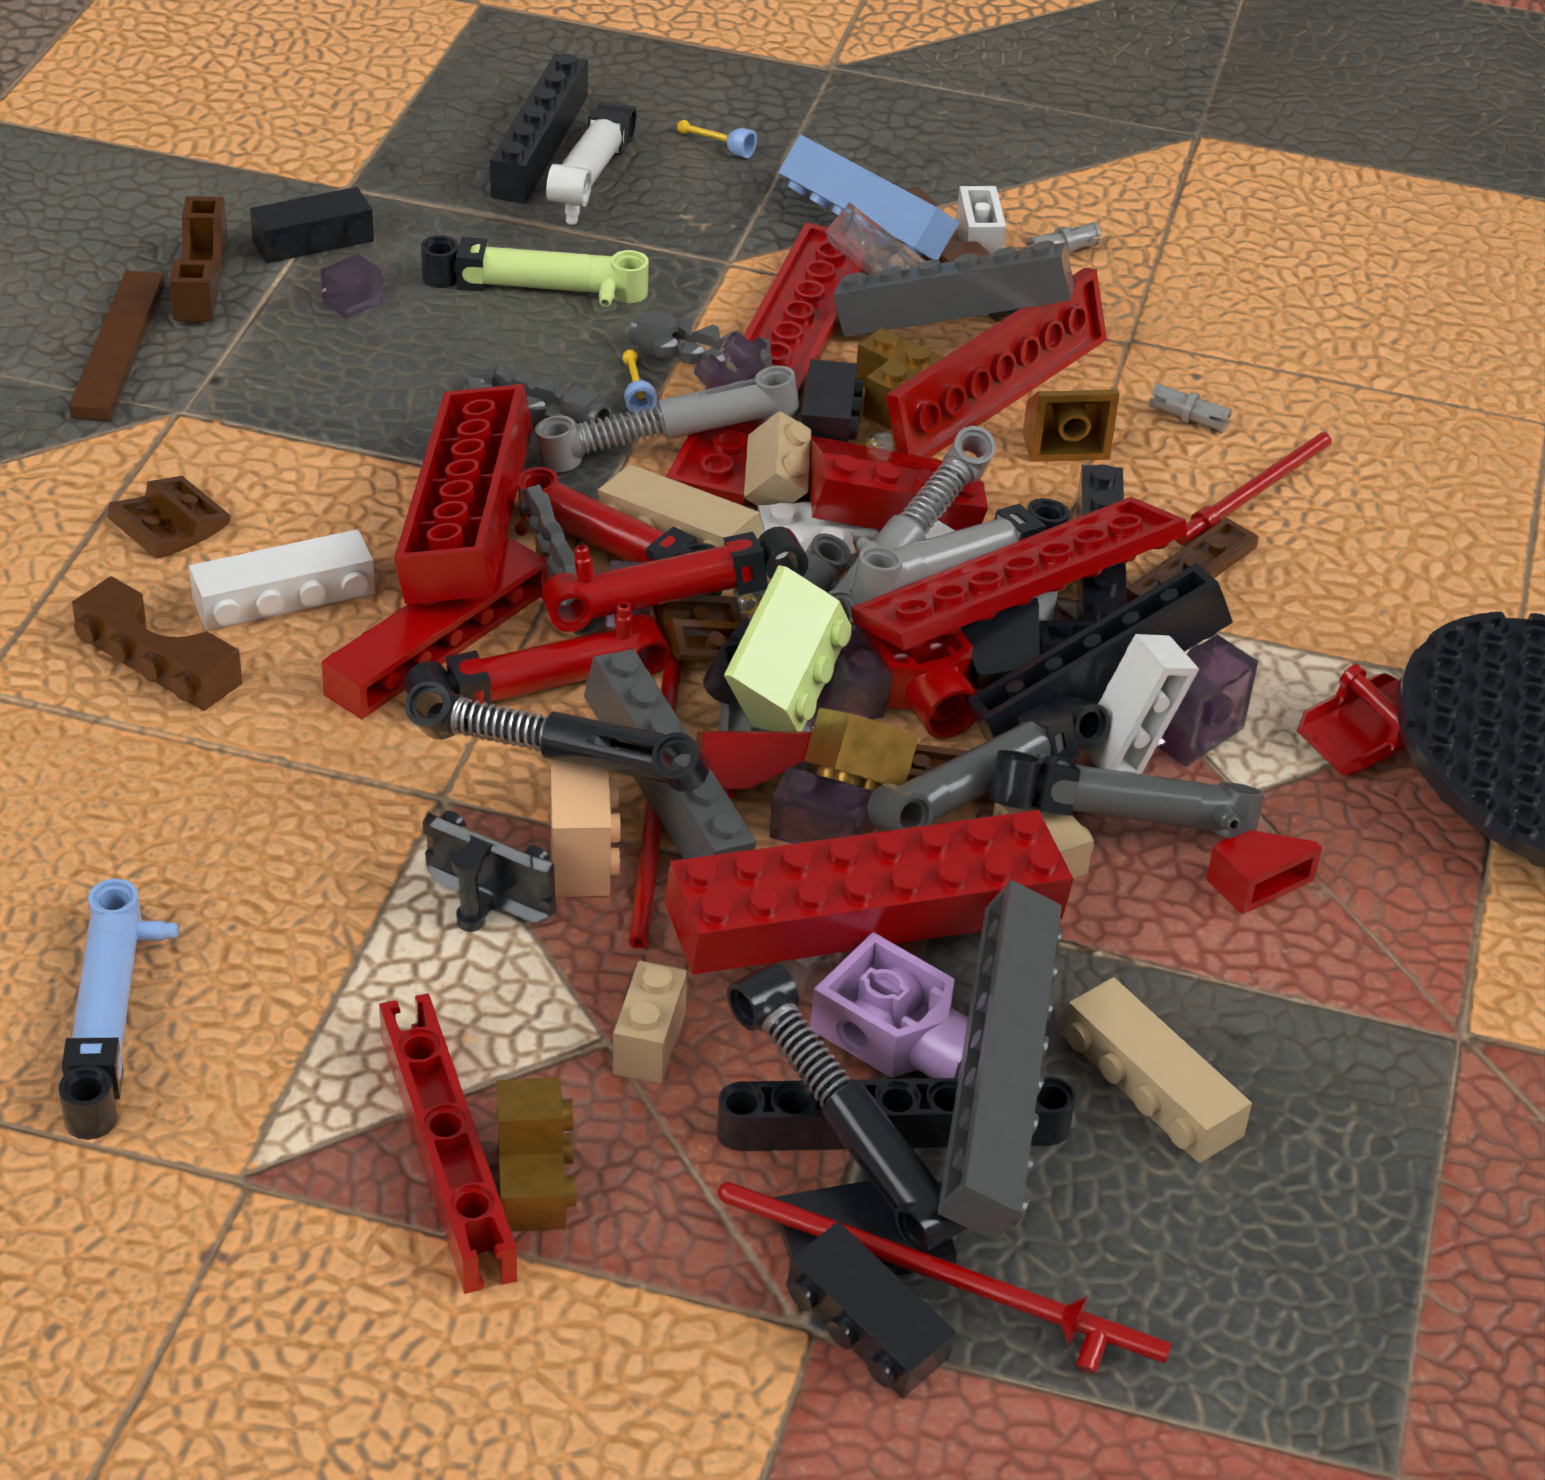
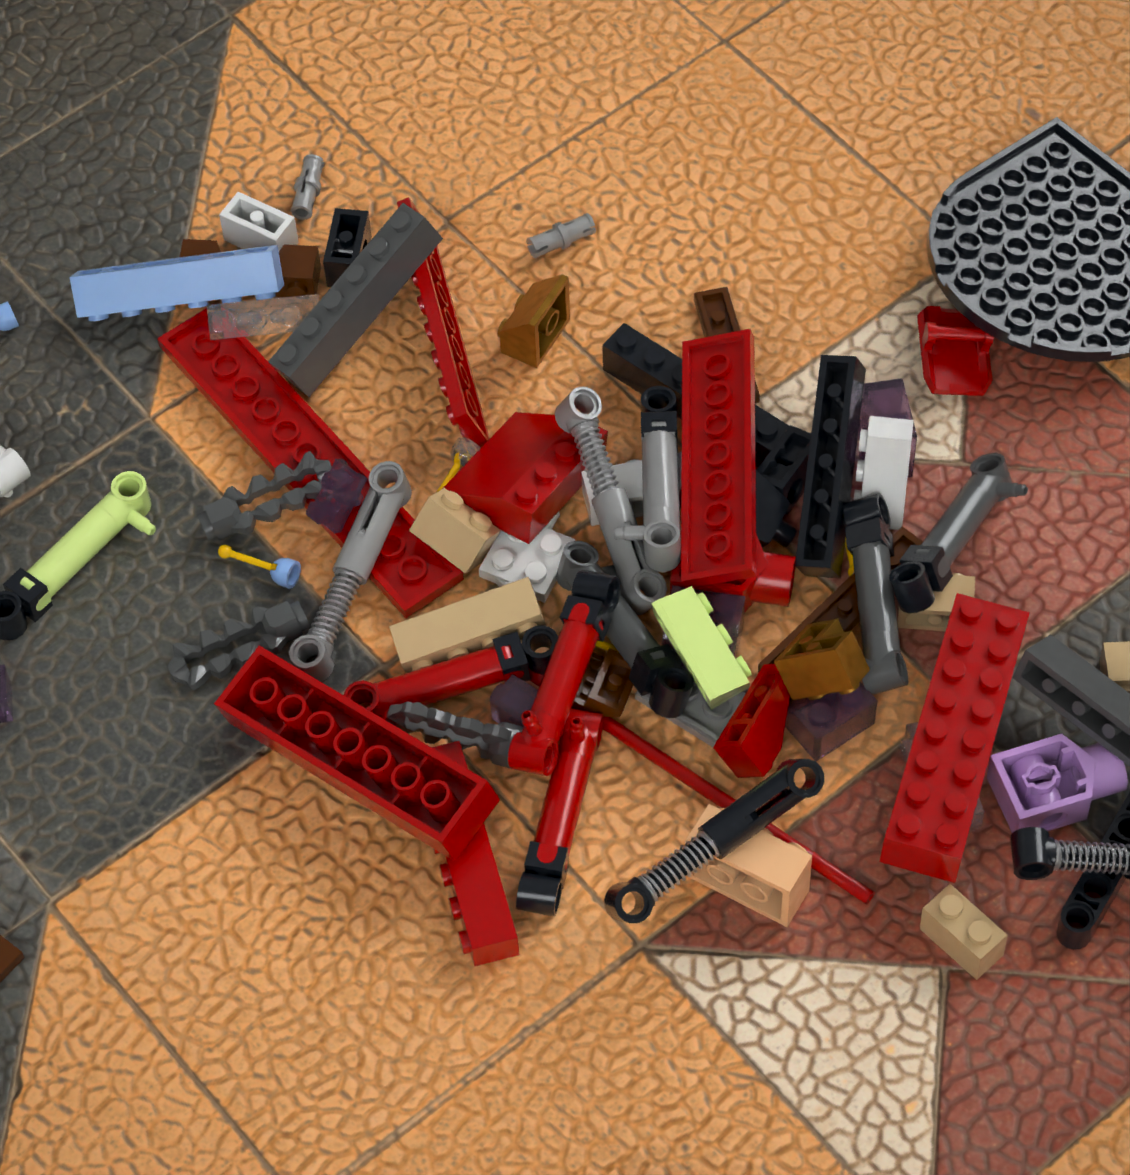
camera: 50 degrees left, 15 degrees up
(169, 516) = (190, 972): reddish brown slope -> none
(191, 667) = (308, 1070): reddish brown arch -> none
(282, 579) = (338, 930): white brick -> none
(448, 1144) = (1022, 1115): red piece -> none
(488, 872) = (766, 957): black shield -> none
(534, 1153) = (1045, 1069): pearl gold brick -> none
(696, 820) = (703, 778): dark grey brick -> none
(832, 400) = (387, 440): black brick -> none
(885, 364) = (397, 388): pearl gold brick -> none
(1211, 515) = (685, 303): red bar -> none
(1261, 867) = (1046, 502): red slope -> none

